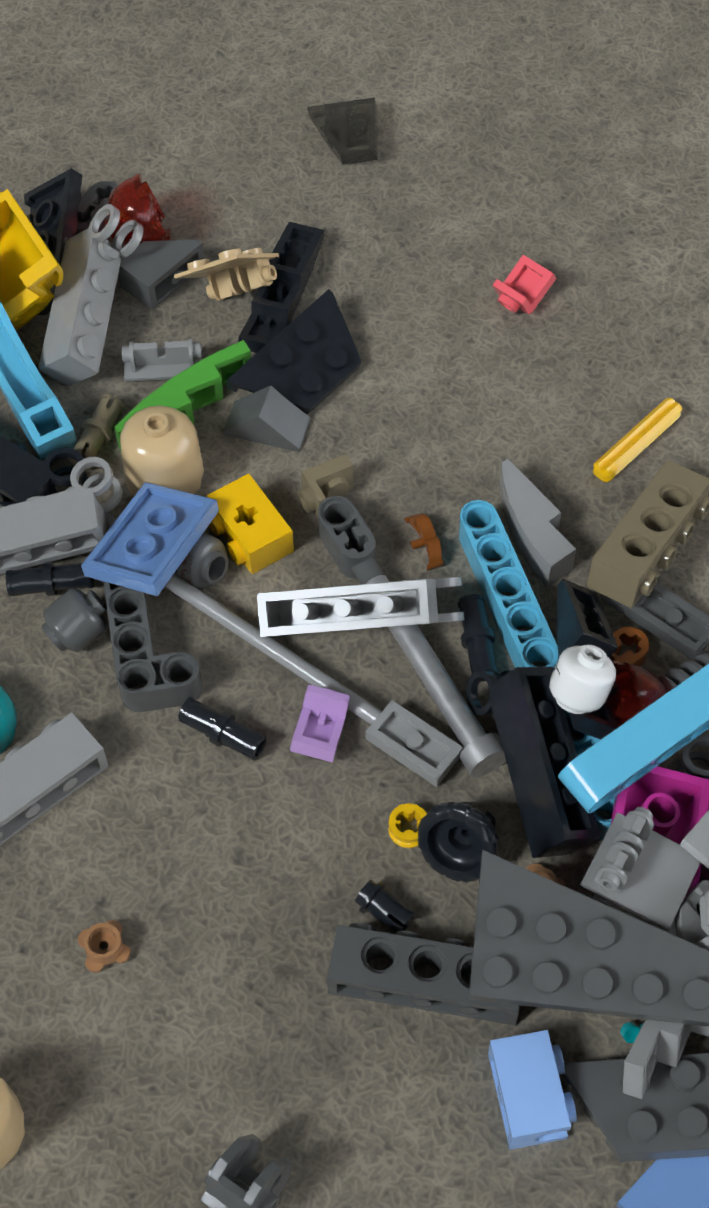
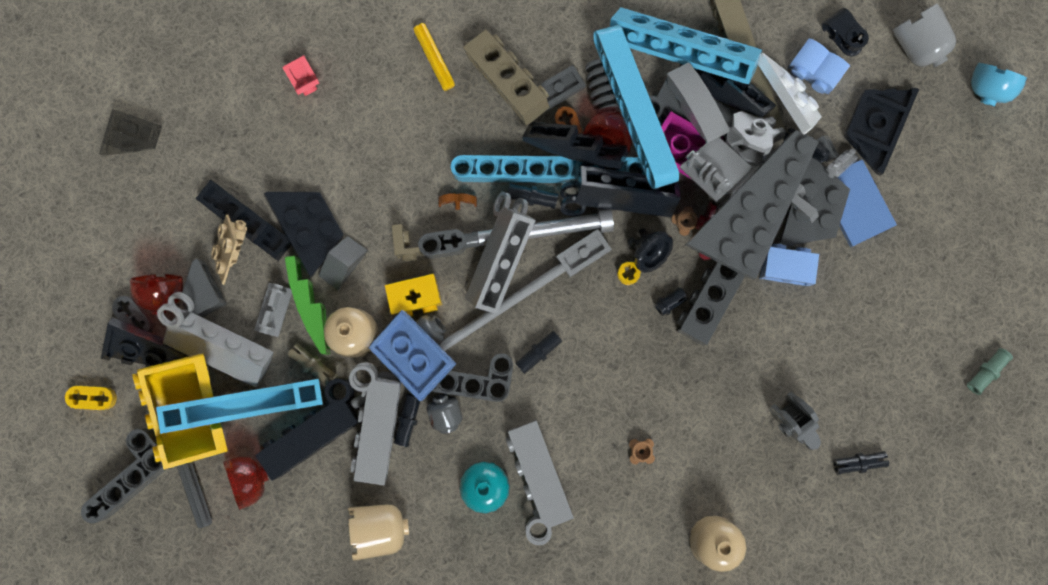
camera: 70 degrees left, 25 degrees up
(320, 723) = (557, 299): lavender bracket -> none
(535, 525) = (472, 138): light grey slope -> none
(582, 679) = (604, 153): white head -> none

